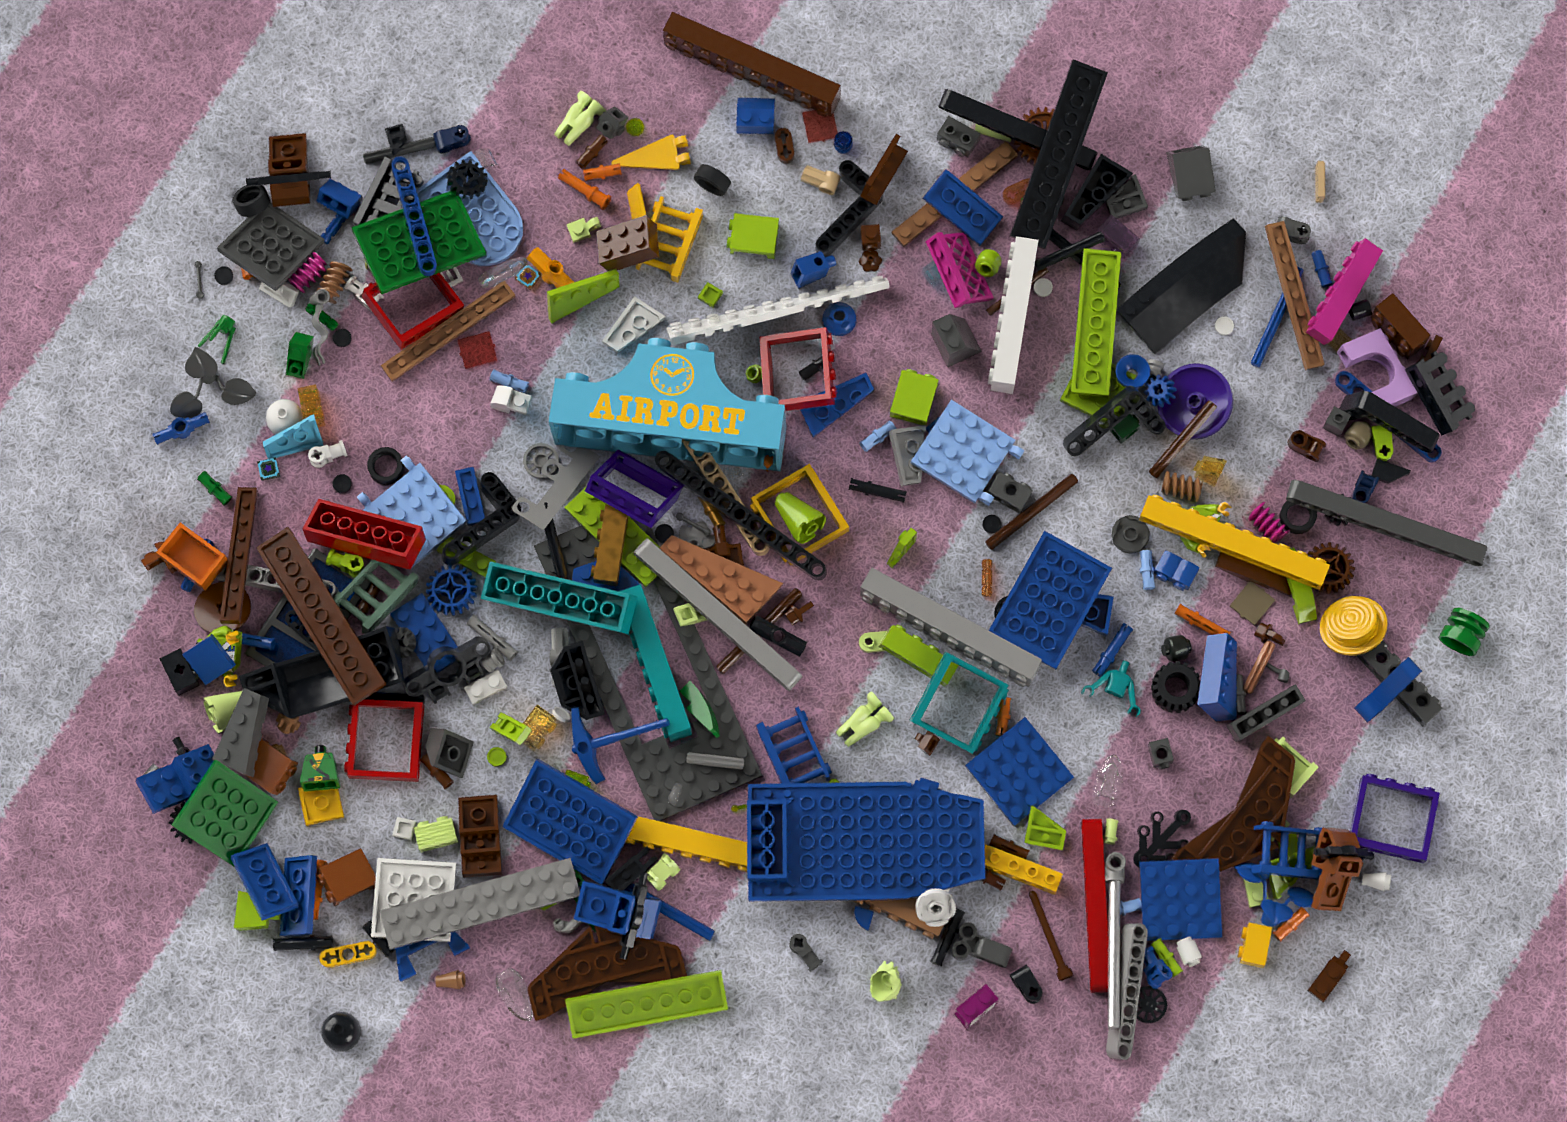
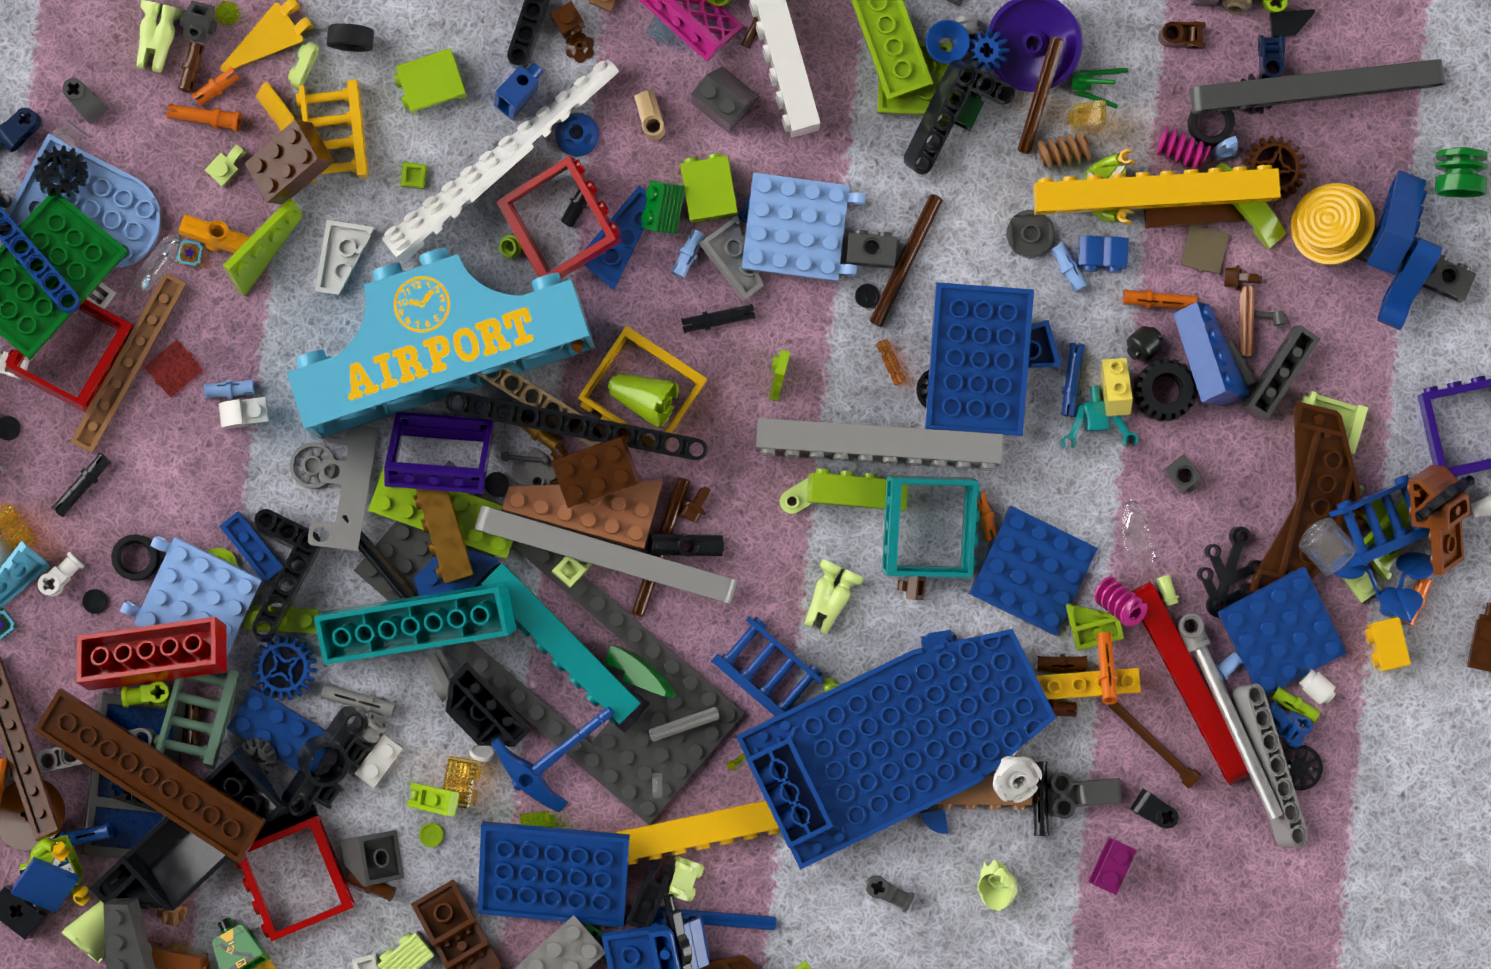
camera: 30 degrees left, 10 degrees up
(372, 399) = (81, 484): none -> black pin
(506, 141) = (86, 102): none -> dark grey piece
(675, 180) = (307, 56): none -> yellowish green plate
(738, 550) = (595, 471): none -> reddish brown brick
(875, 394) = (663, 207): none -> green brick
(897, 328) = (650, 113): none -> tan piece
(1033, 876) = (1107, 676): none -> orange pin
(1071, 820) = (1120, 602): none -> dark pink piece
(1141, 667) = (1116, 386): none -> light yellow brick
(1219, 444) = (1083, 80): none -> green plant
(1241, 848) = (1327, 546): none -> clear piece
(1299, 539) = (1225, 149): none -> light blue tile
(1401, 644) = (1398, 222): none -> blue wedge

